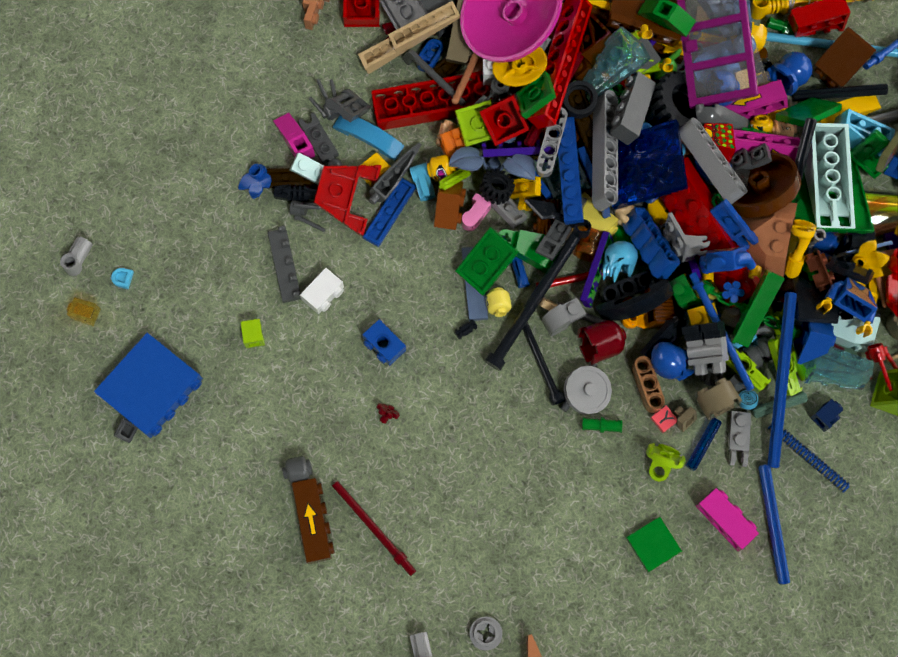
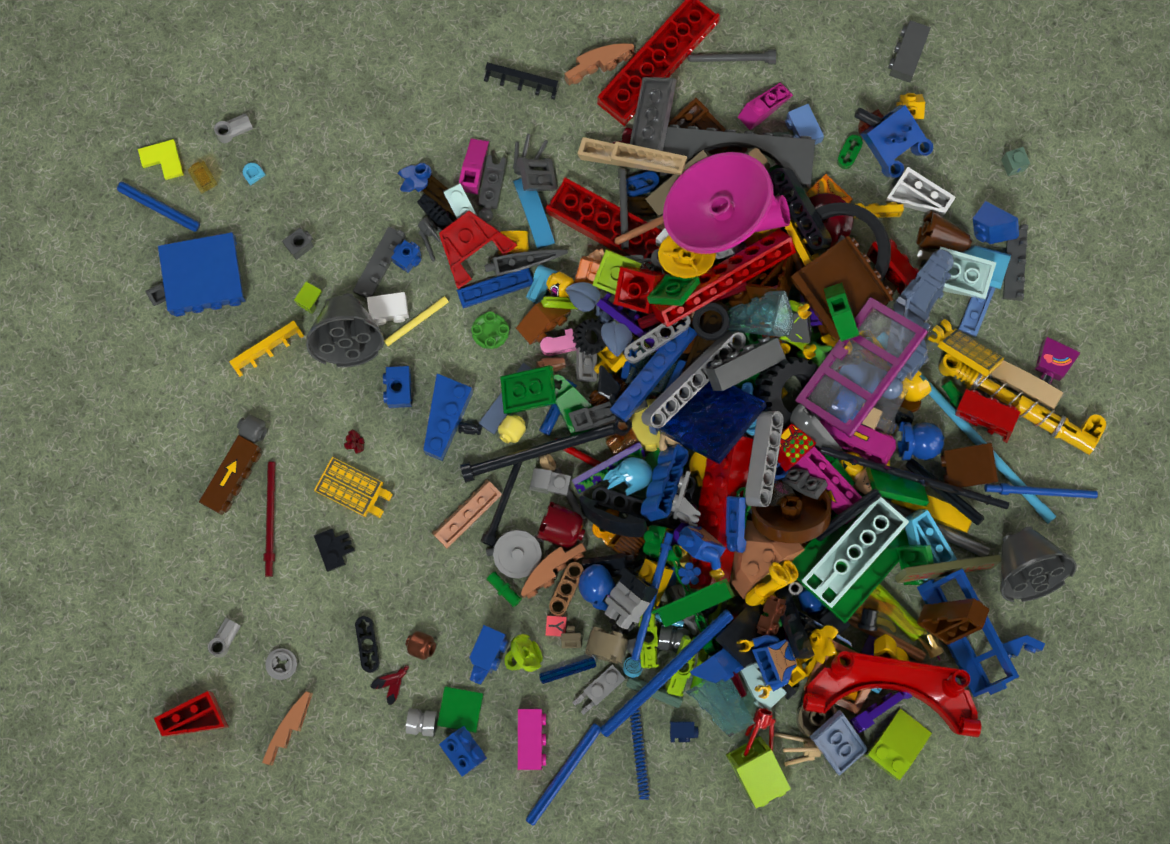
camera: 45 degrees right, 5 degrees up
(36, 319) = (164, 154): none -> neon yellow tile
(65, 363) = (158, 206): none -> blue axle
(207, 307) = (298, 251): none -> dark grey brick
(250, 398) = (265, 346): none -> yellow hinge
(273, 49) = (521, 78): none -> black hinge
(302, 241) = (406, 255): none -> blue brick
(309, 333) = (344, 333): none -> dark grey cone
(351, 285) = (417, 320): none -> light yellow bar
(415, 245) = (490, 330): none -> bright green dish
(417, 449) = (351, 488): none -> yellow tile
(438, 330) = (446, 412): none -> blue wedge
(444, 508) = (333, 549): none -> black hinge
(477, 235) = (557, 363): none -> nougat cone
(522, 393) = (467, 514): none -> nougat hinge
(553, 563) = (375, 658): none -> black beam
(580, 521) = (420, 645): none -> copper head
(583, 568) = (393, 681): none -> dark red piece
(621, 385) = (543, 573): none -> nougat slope
(637, 481) = (486, 653): none -> blue hinge
(638, 578) = (421, 722): none -> light grey wheel
(688, 573) = (463, 751): none -> blue brick
(753, 121) = (924, 481): none -> black plant
(879, 220) = (868, 619): none -> black bush

